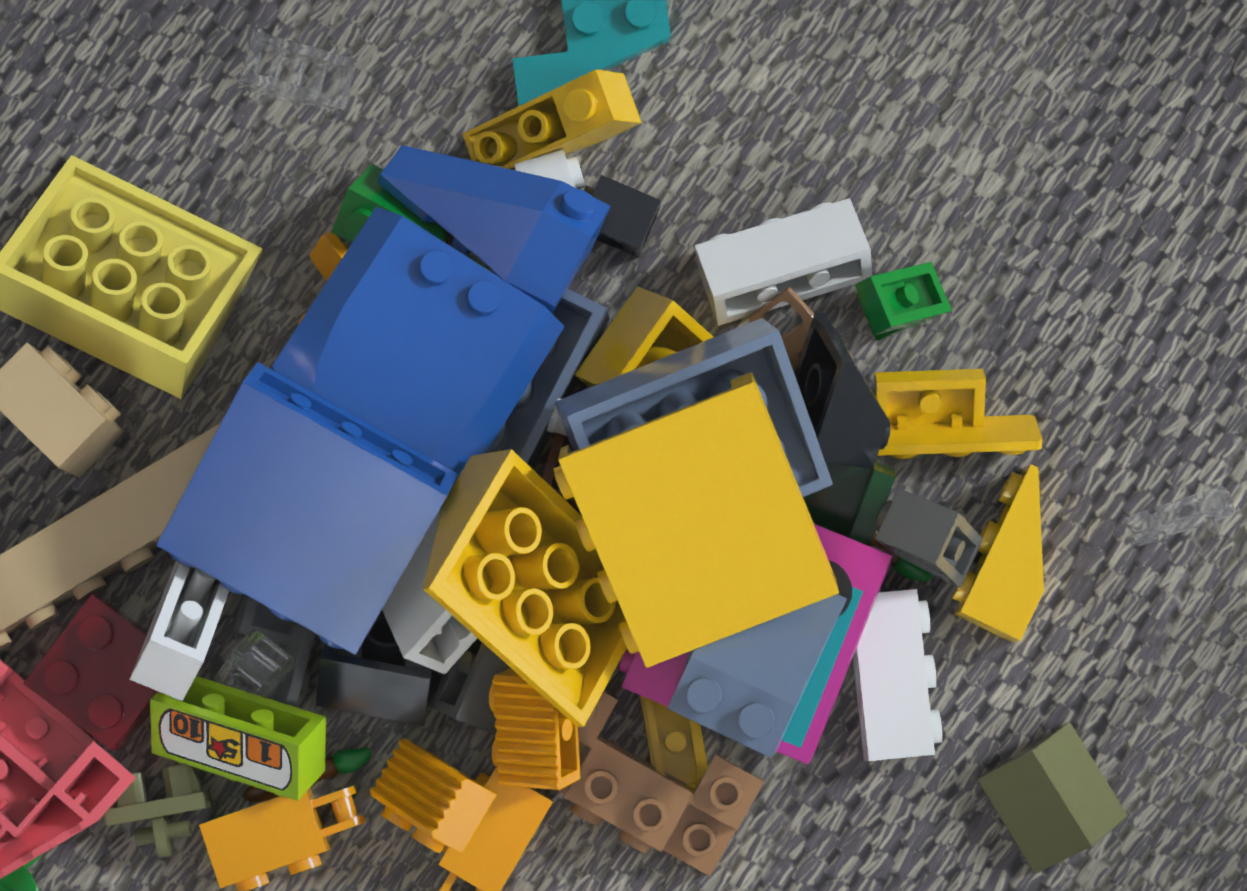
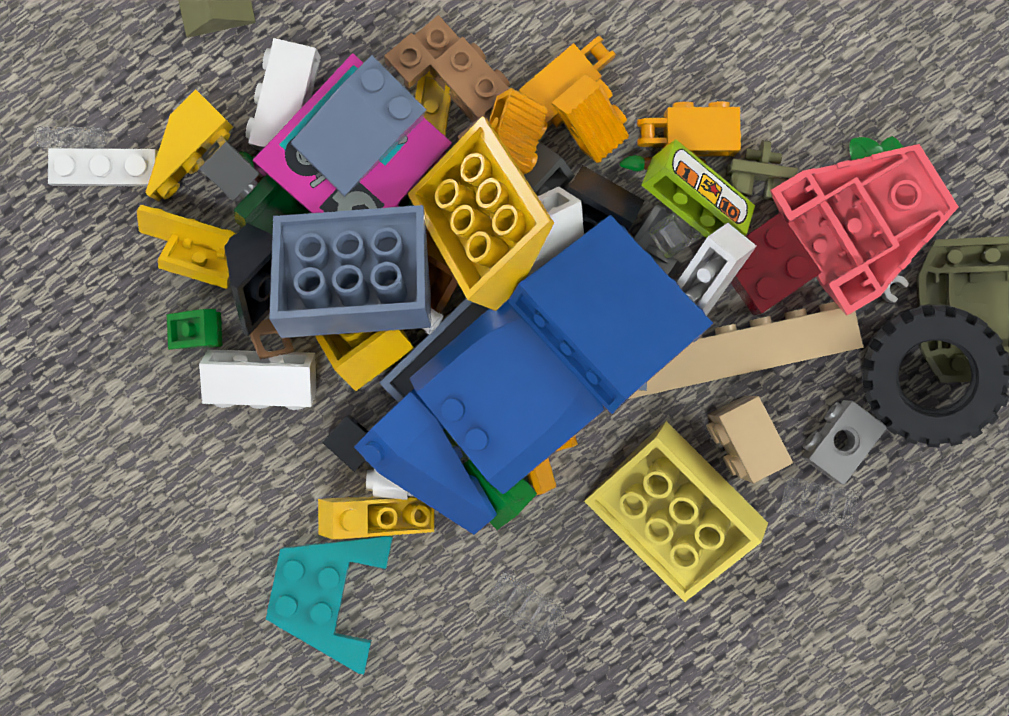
camera: 155 degrees left, 5 degrees up
(697, 524) = (366, 213): yellow panel -> none
(1119, 489) = (100, 167): none -> white plate

